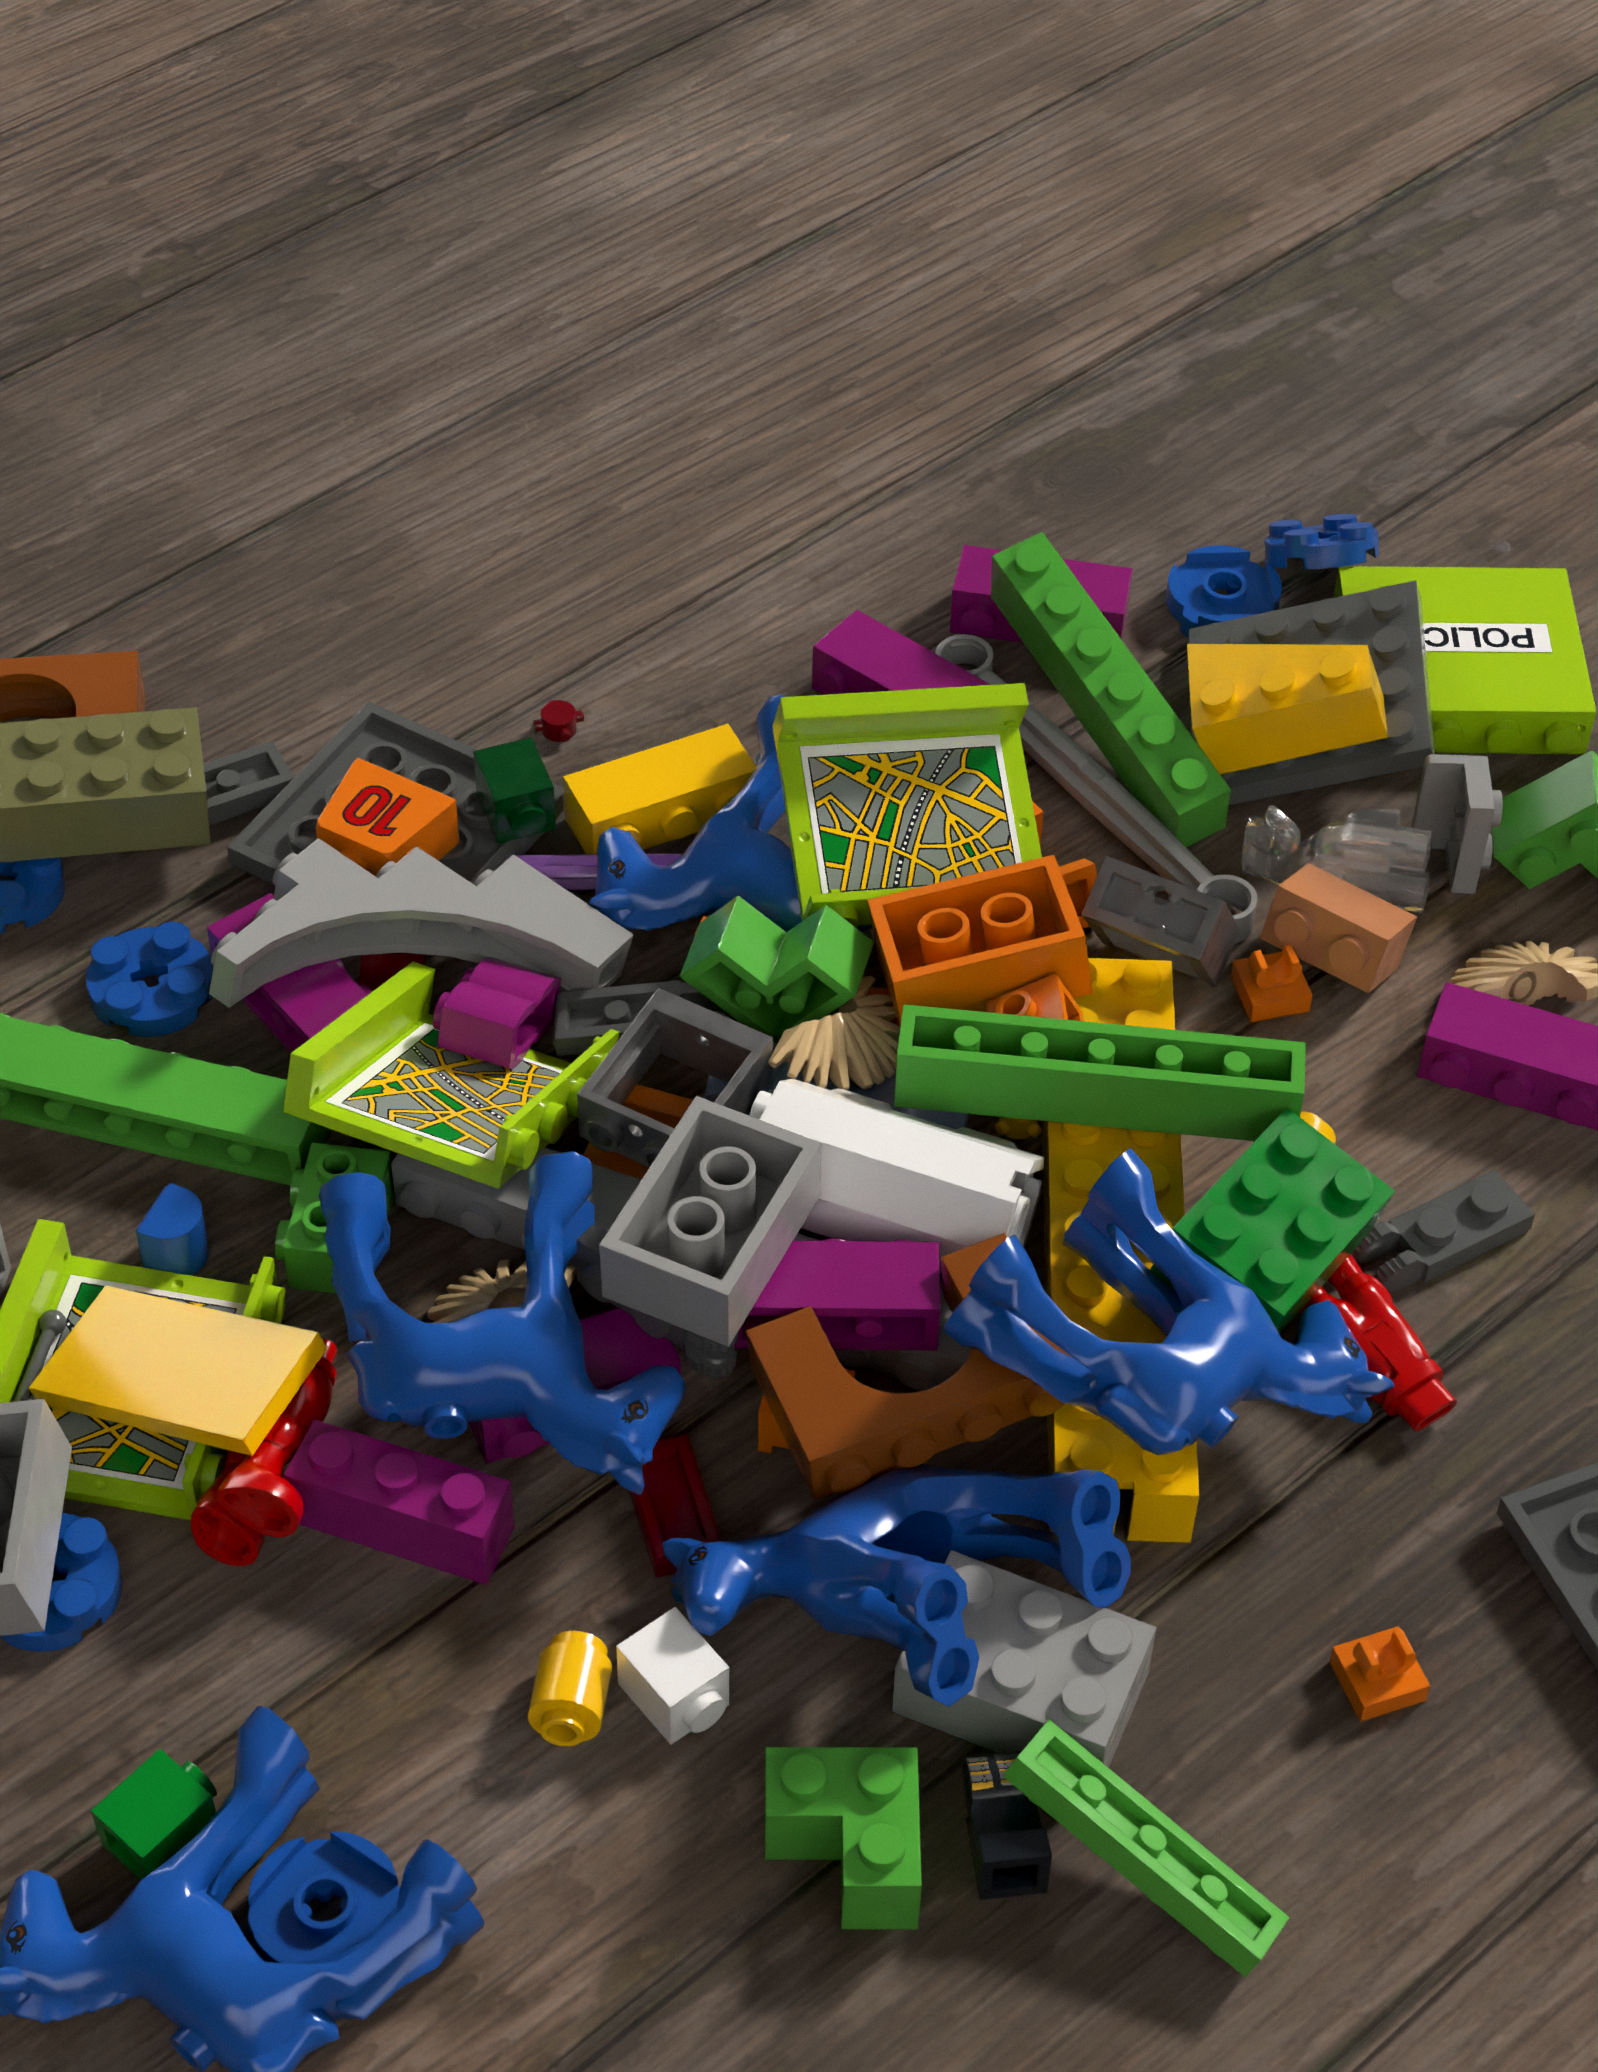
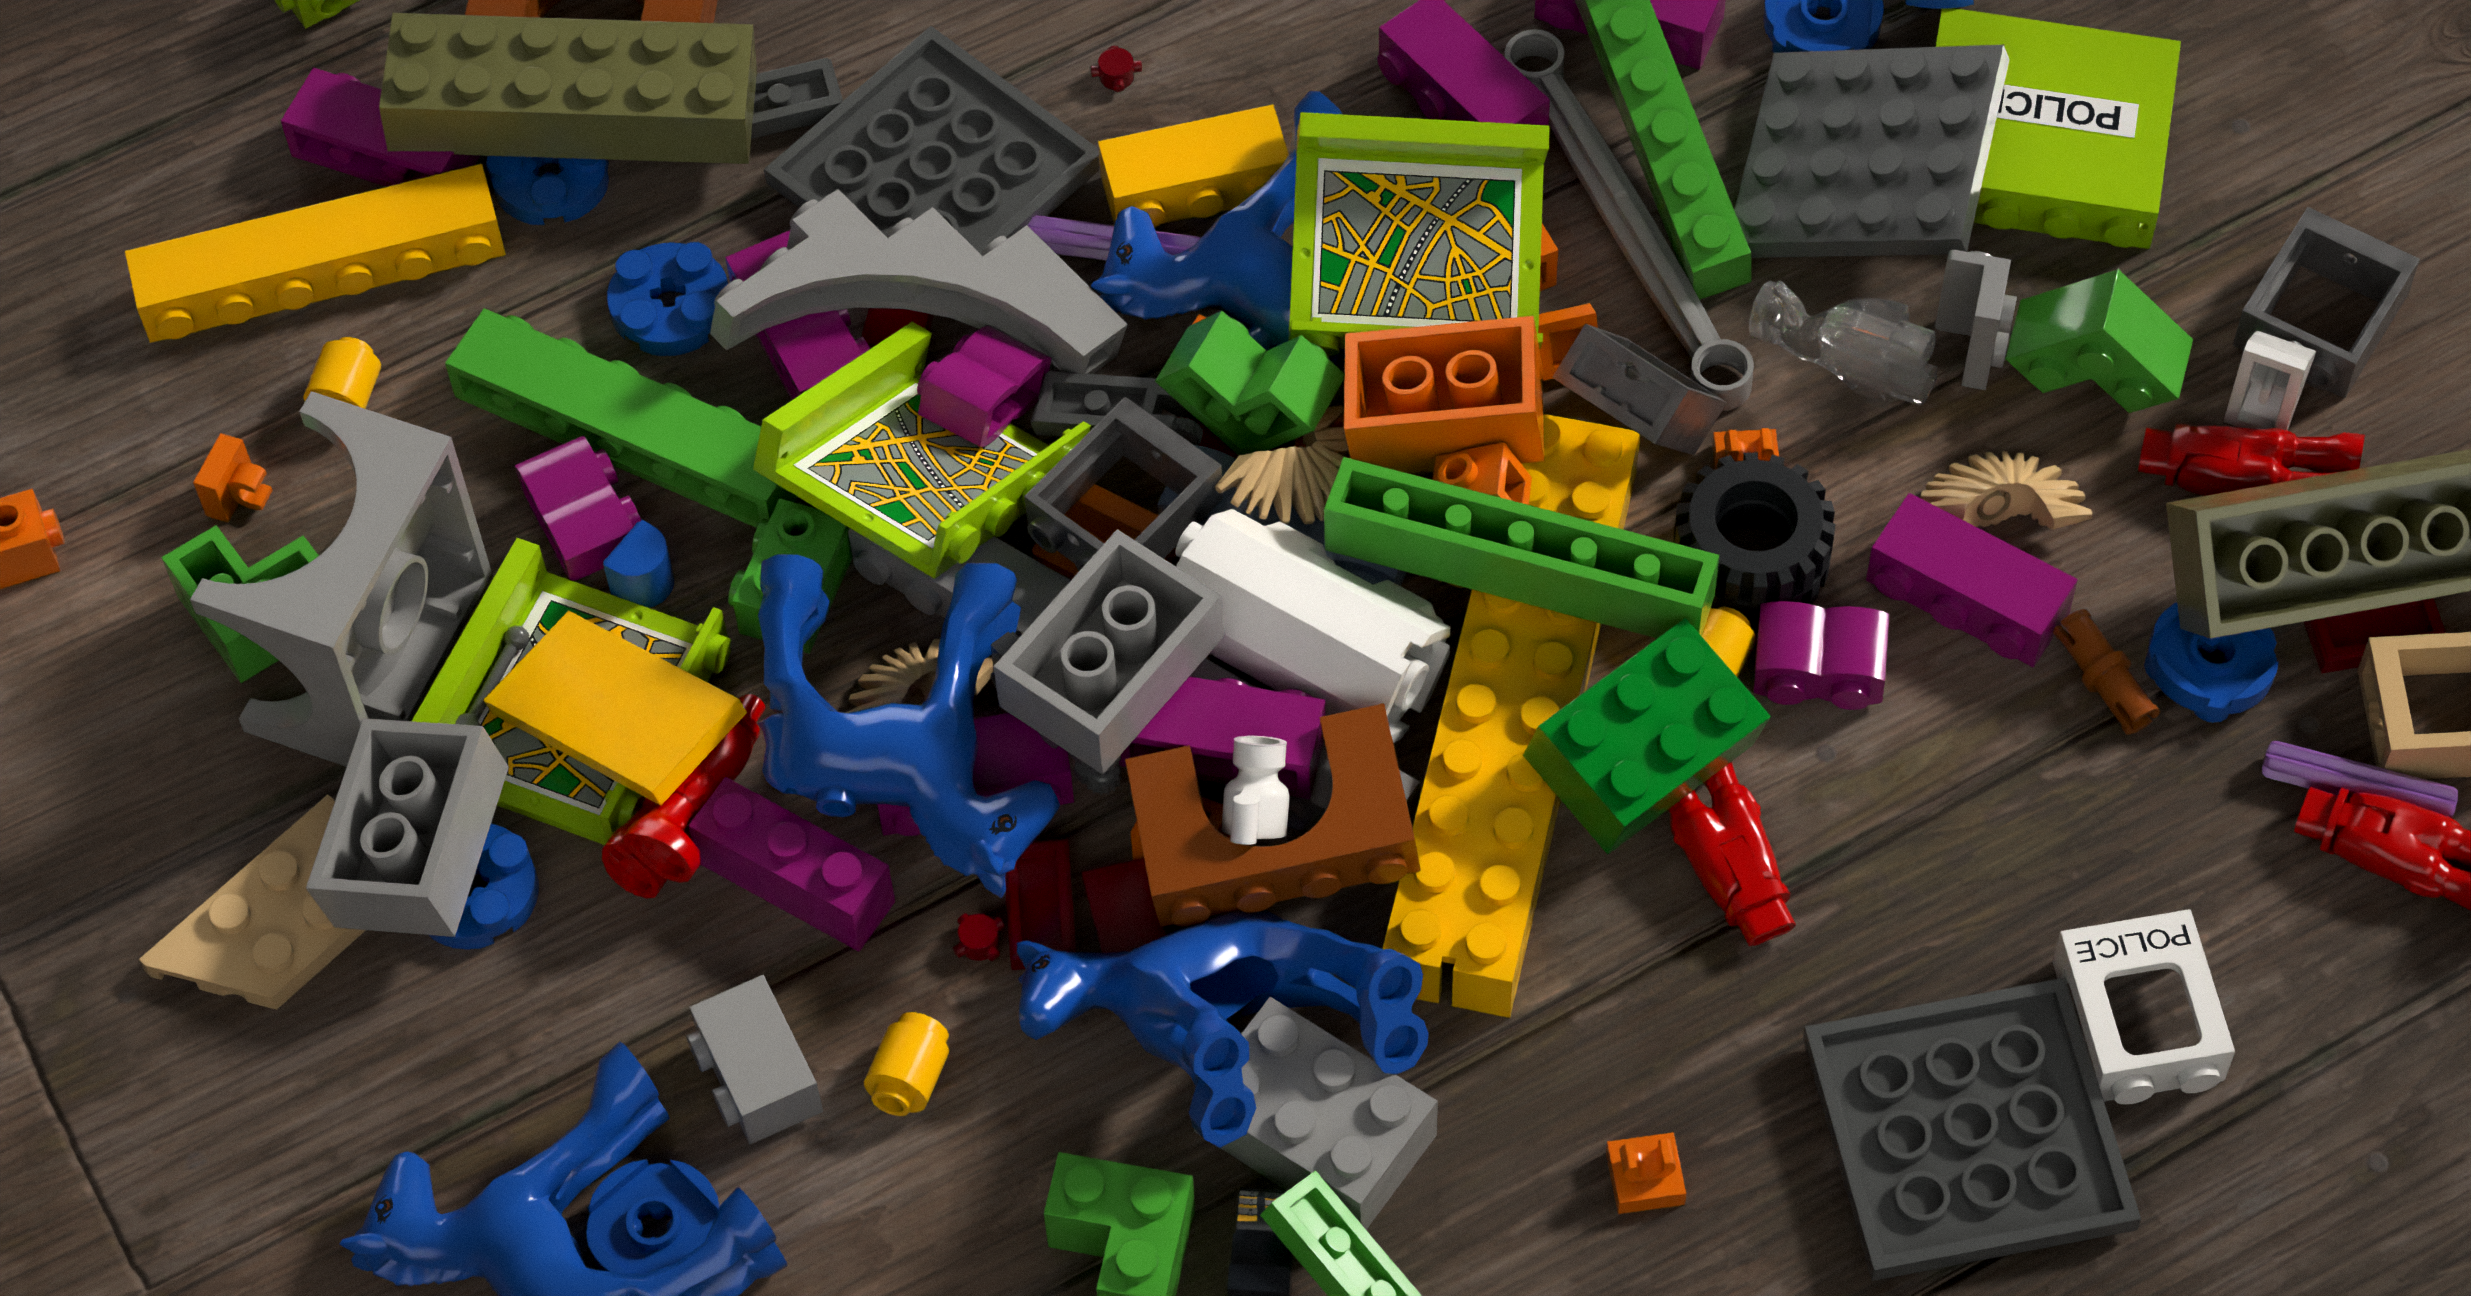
camera: 15 degrees right, 10 degrees up
(93, 1184) = (577, 505): none -> magenta brick
(154, 1812) = (522, 1117): green brick -> none
(385, 816) = (909, 169): orange torso -> none
(403, 1709) = (755, 1060): none -> light grey brick
(514, 790) = (1046, 151): dark green brick -> none
(614, 1548) = (978, 937): none -> dark red piece
(673, 1676) = (1001, 1069): white brick -> none
(760, 1491) = (1122, 906): none -> dark red tile
(892, 1350) = (1256, 799): none -> white piece
(1216, 1330) = (1543, 857): blue animal -> none
(1281, 701) = (1821, 166): yellow wedge -> none
(1329, 1017) = (1766, 499): none -> black tyre
(1338, 927) = (1824, 414): nougat brick -> none
(1408, 1141) = (1821, 654): none -> magenta brick
(1446, 1231) = (1839, 749): dark grey hinge -> none

